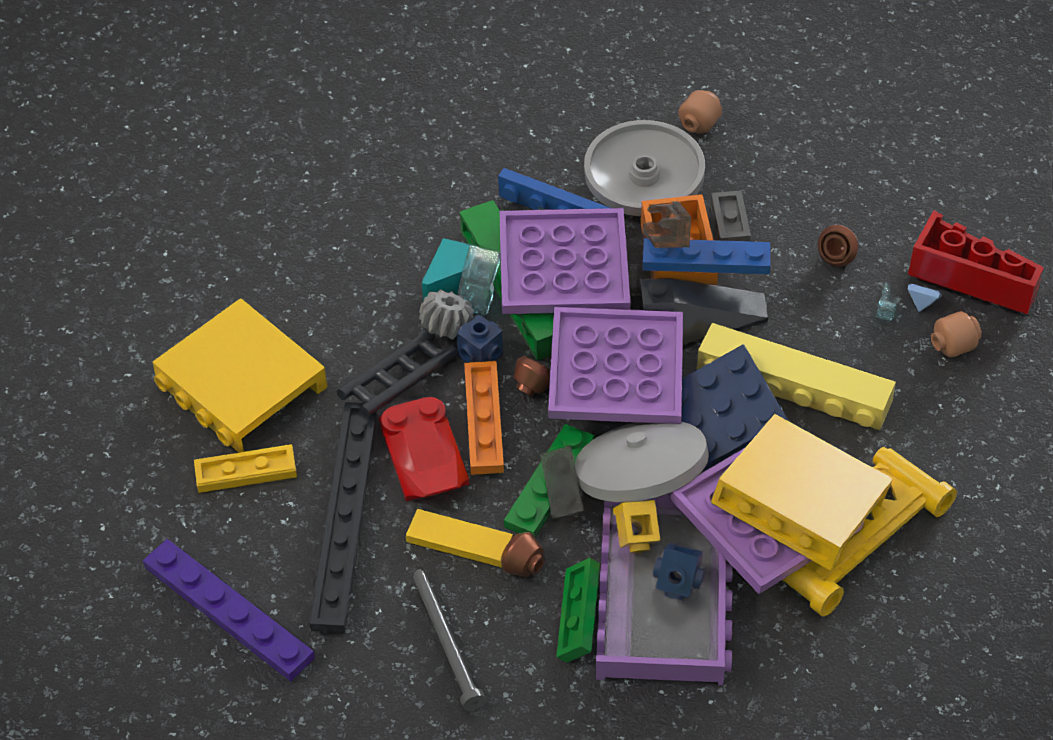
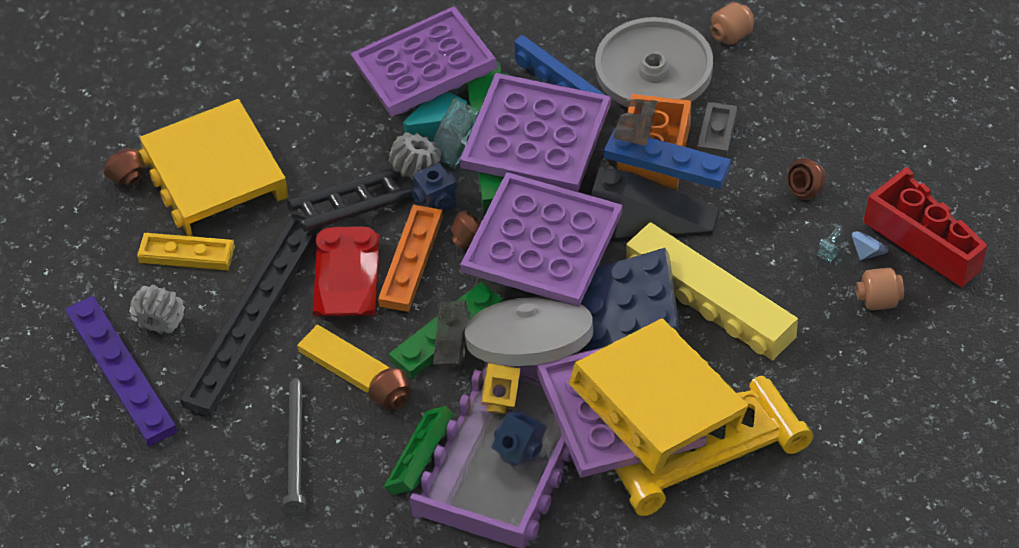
camera: 20 degrees right, 0 degrees up
(146, 397) = (124, 167): none -> copper cone
(246, 535) = (157, 309): none -> light grey gear
(416, 216) = (424, 61): none -> medium lavender plate

